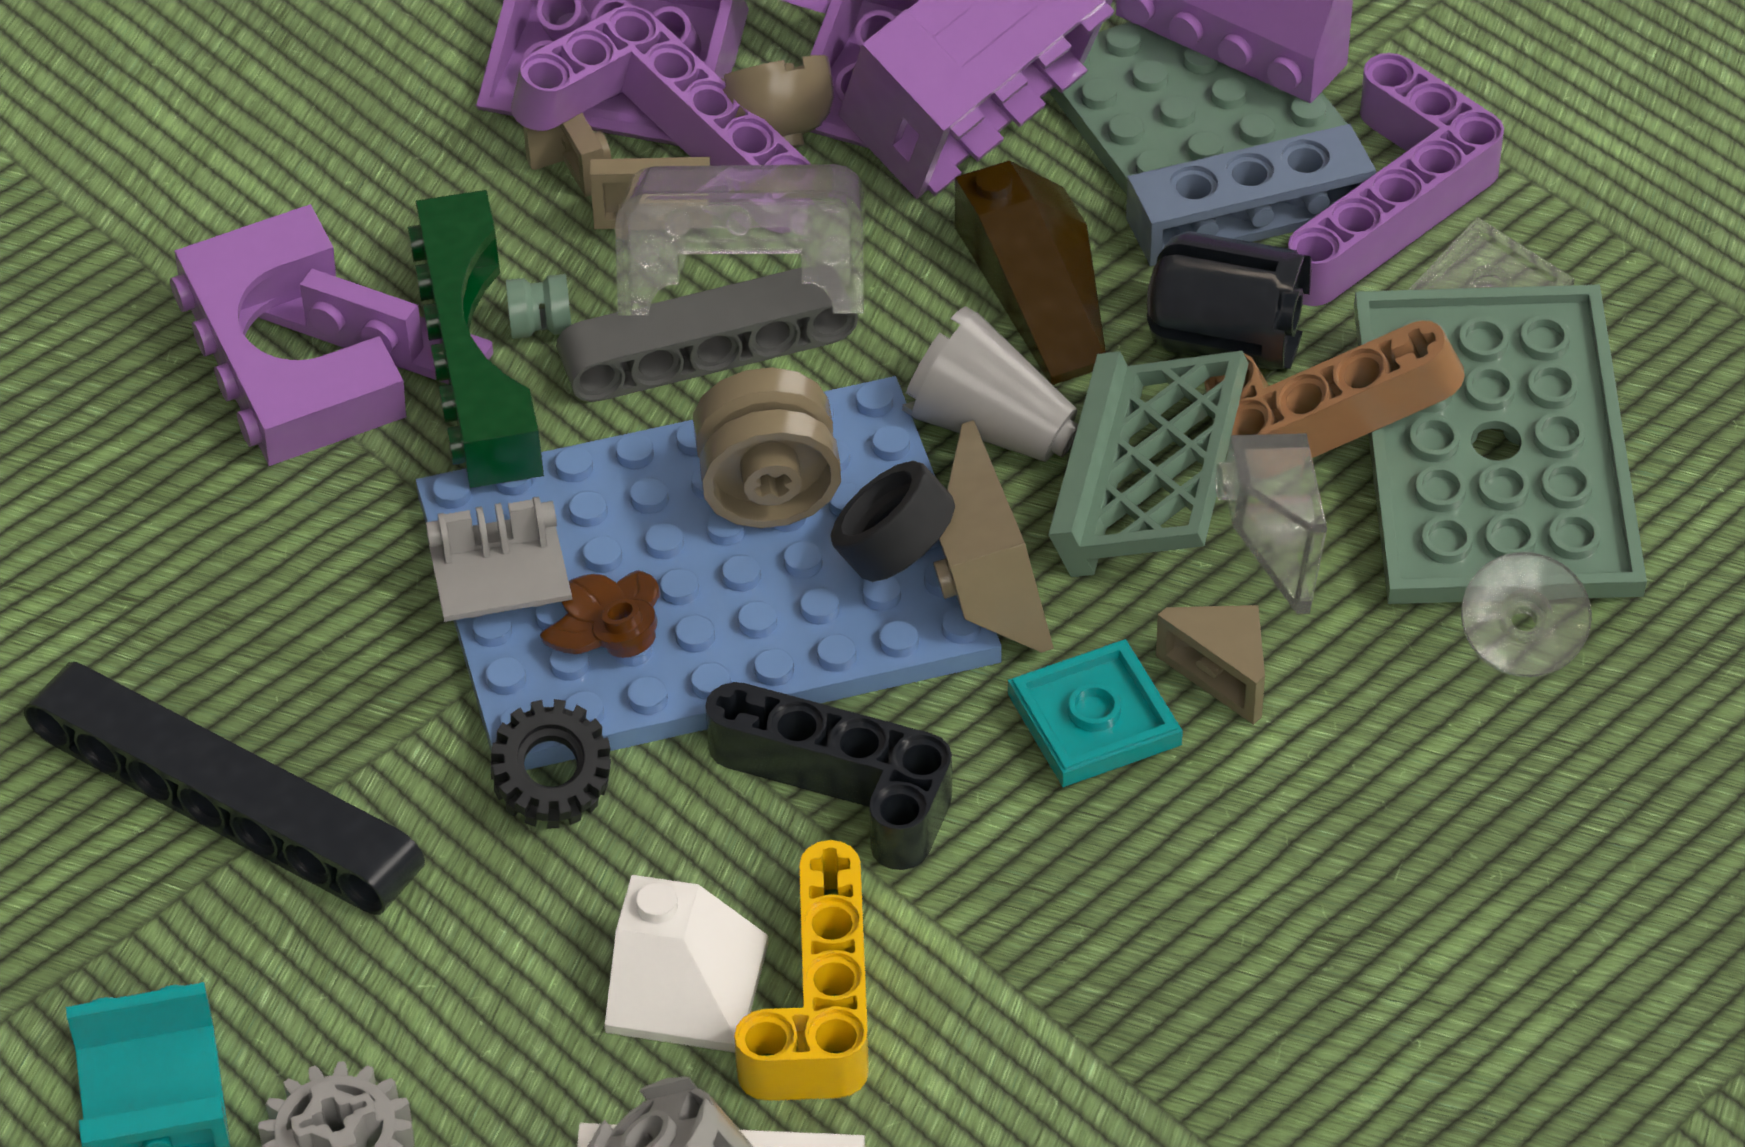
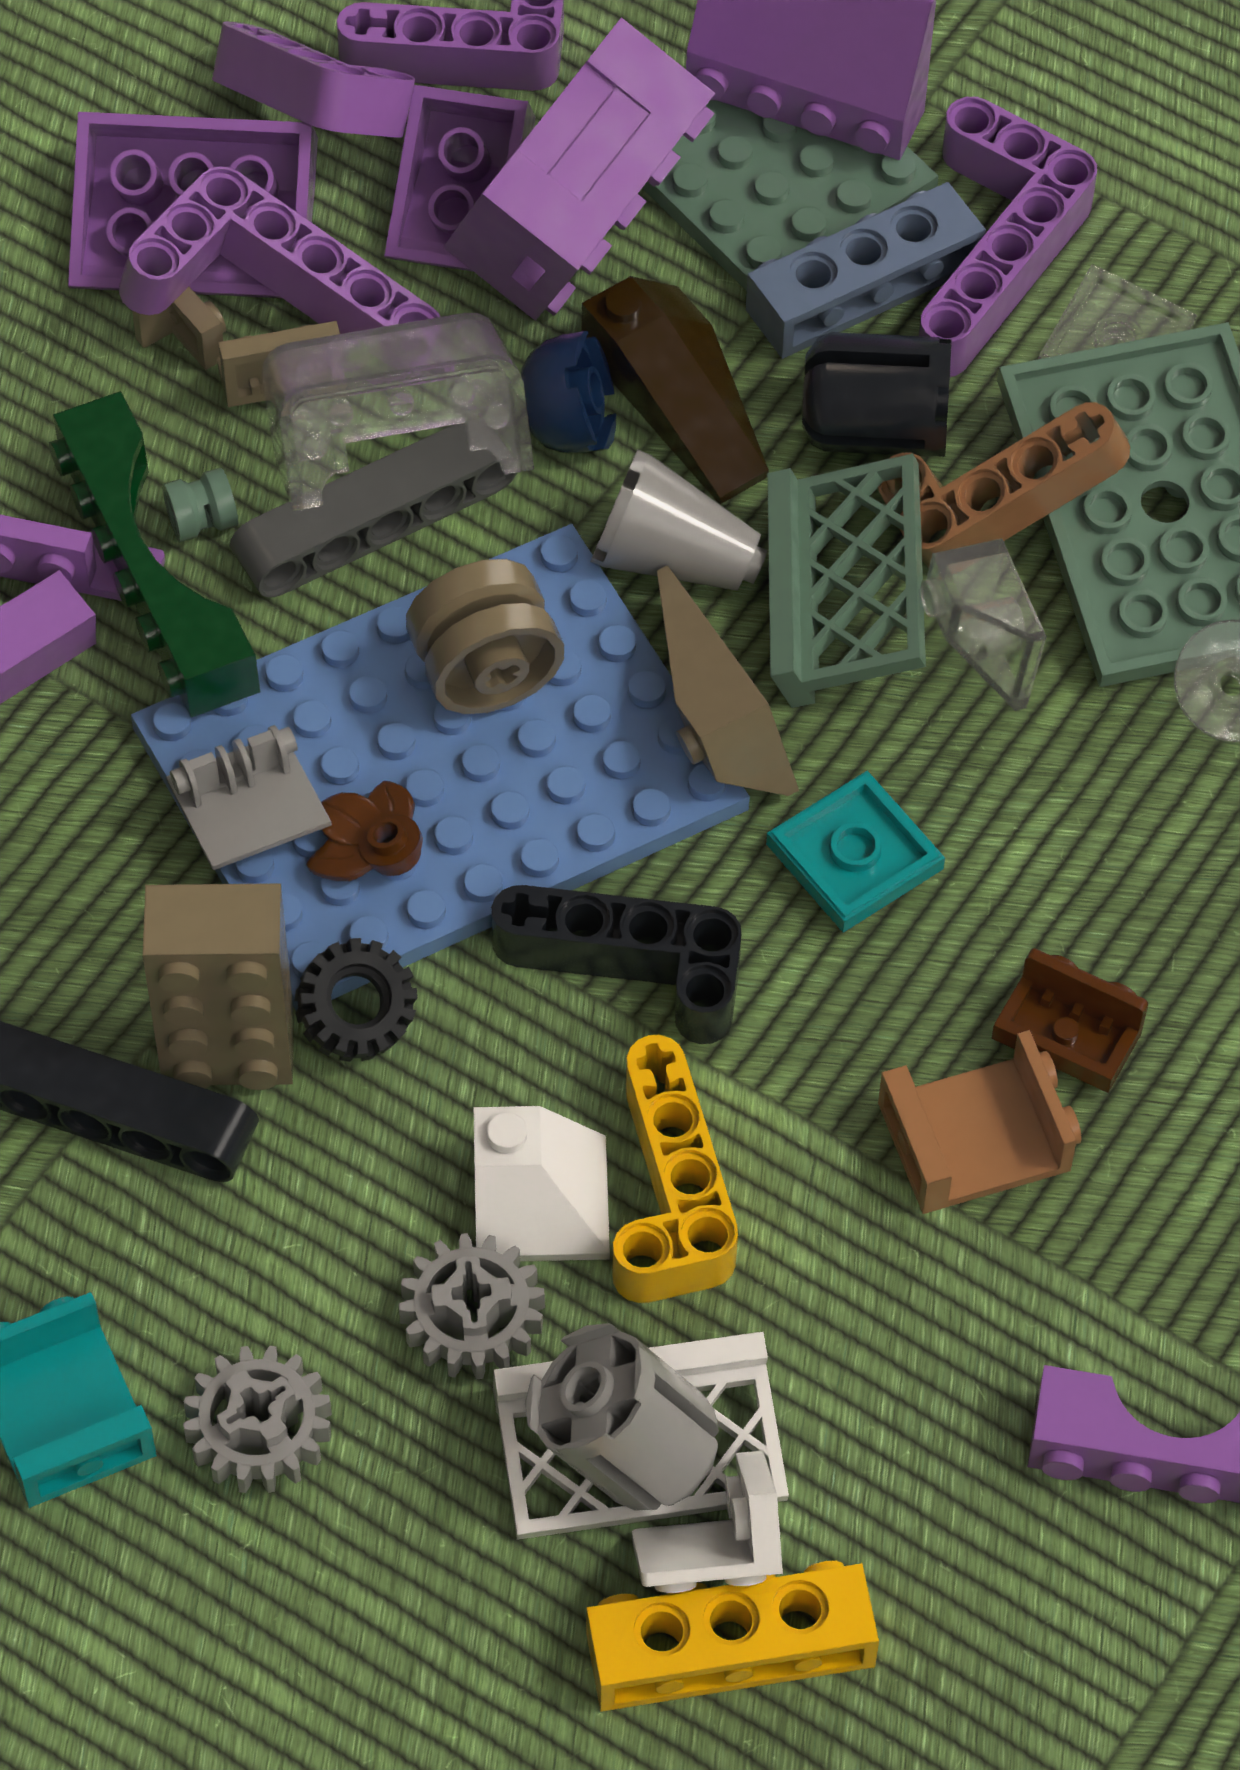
camera: 15 degrees left, 10 degrees up
(406, 710) = (219, 983): none -> dark tan brick
(581, 1065) = (502, 1302): none -> light grey gear
(785, 95) = (386, 235): dark tan cylinder -> none
(892, 521) = (644, 711): black tyre -> none
(922, 258) = (566, 394): none -> dark blue cylinder
(1151, 992) = (980, 1127): none -> medium nougat panel
(1218, 652) = (960, 769): dark tan slope -> none
(1272, 902) = (1074, 1017): none -> reddish brown bracket

